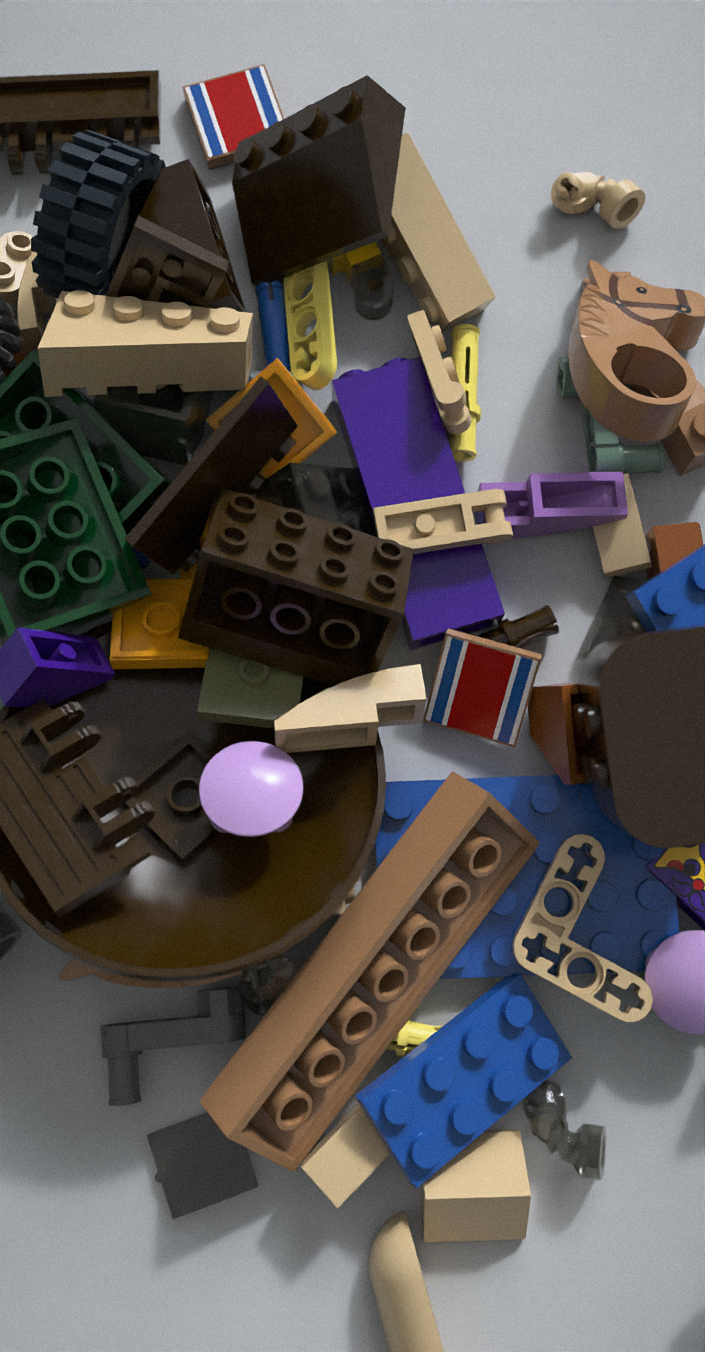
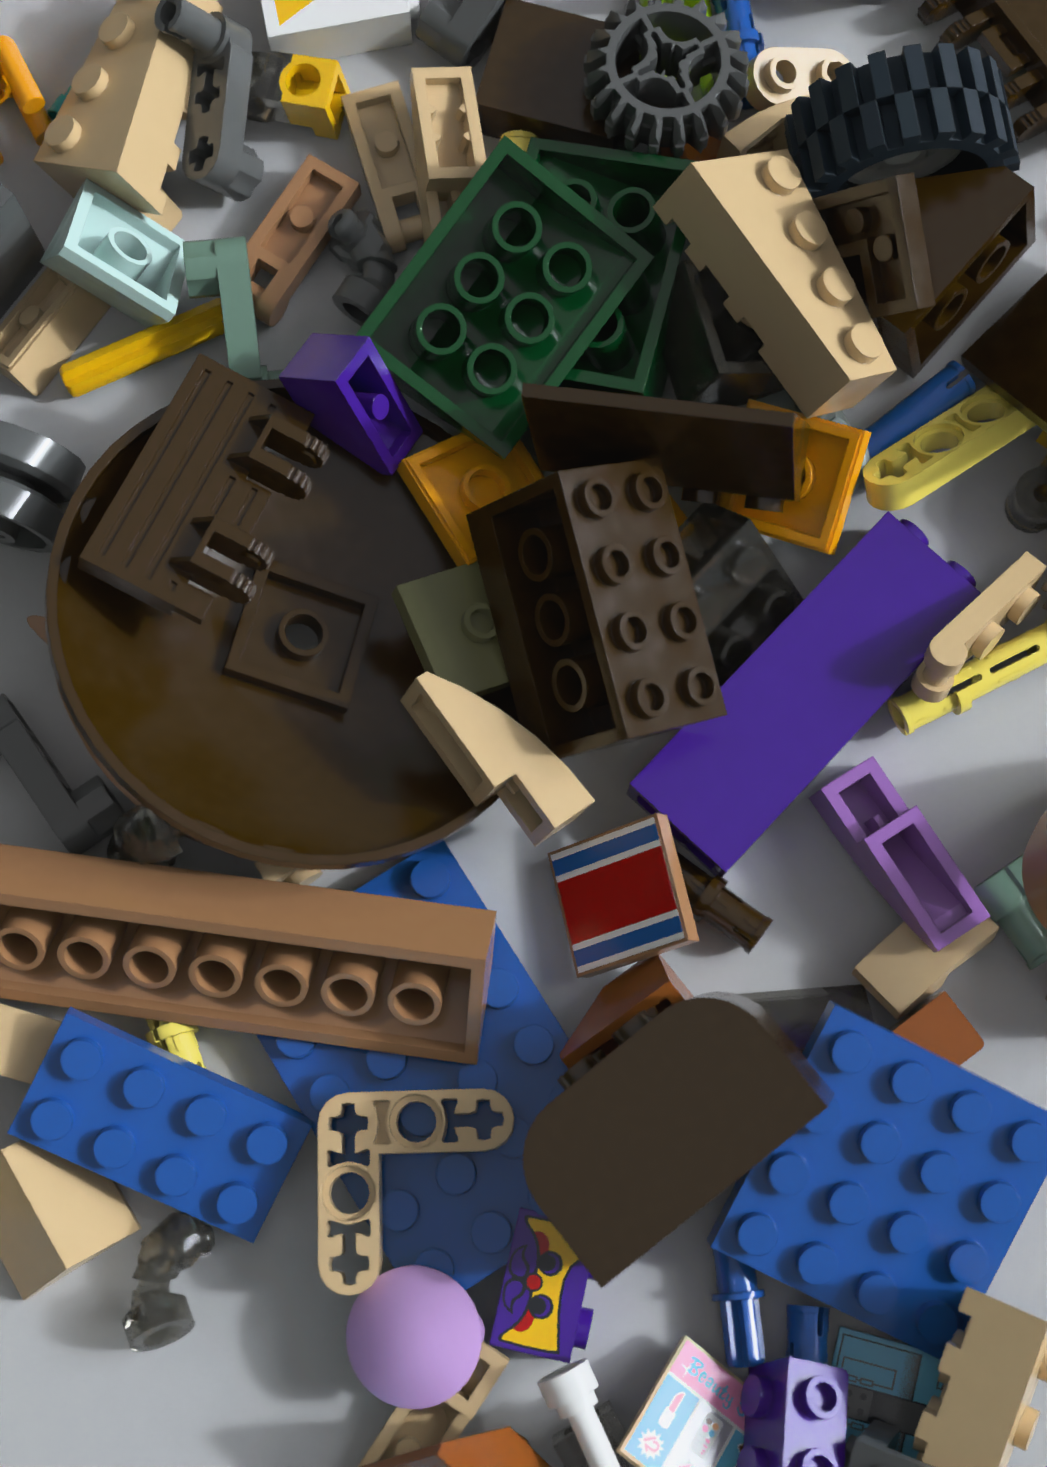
camera: 65 degrees right, 0 degrees up
(251, 789) = (339, 693): lavender dish -> none
(445, 521) = (788, 736): tan plate -> none

